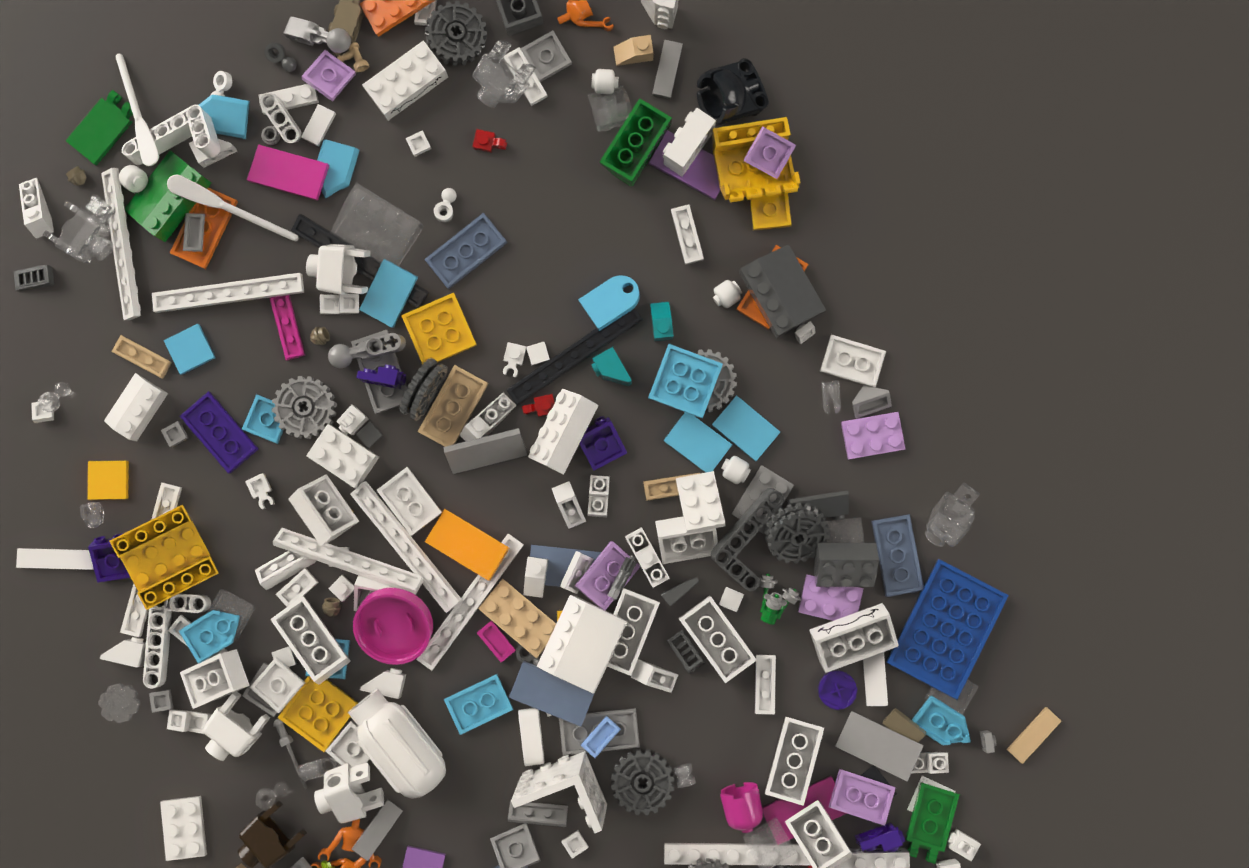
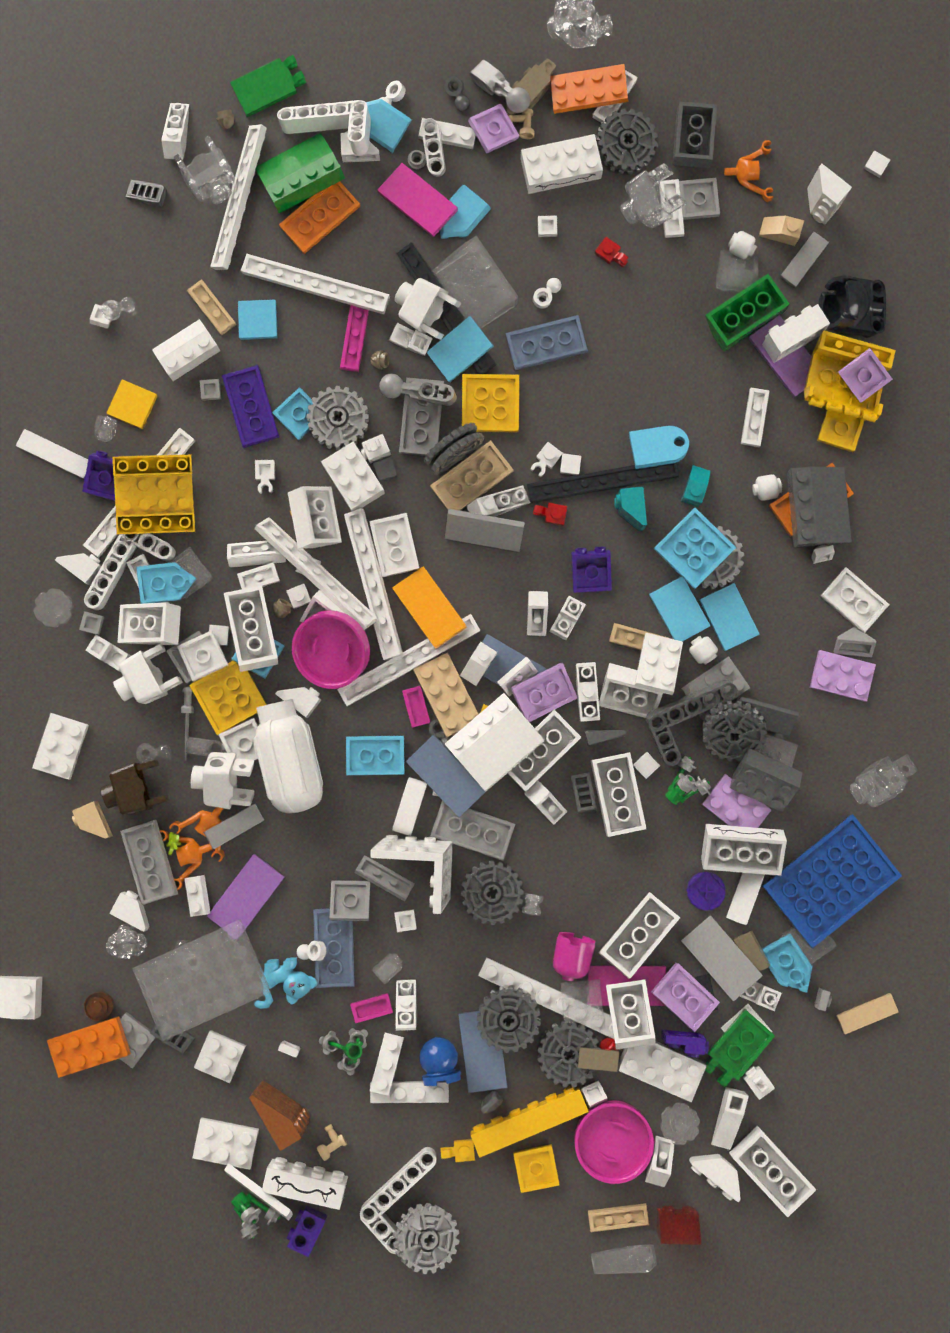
camera: 20 degrees right, 0 degrees up
(100, 209) = (234, 157): clear piece -> none
(133, 178) = (276, 143): white head -> none
(145, 140) = (303, 111): white piece -> none
(190, 190) = (326, 177): white piece -> none
(194, 232) = (309, 215): light grey tile -> none
(318, 125) = (463, 169): white tile -> none
(386, 376) = (425, 423): dark purple plate -> none
(563, 430) = (562, 543): white brick -> none
(600, 736) = (472, 834): light blue tile -> none
(622, 577) = (557, 699): dark grey piece -> none
(765, 684) = (642, 855): white plate -> none
(831, 395) = (821, 622): clear piece -> none
(897, 555) = (816, 794): sand blue tile -> none

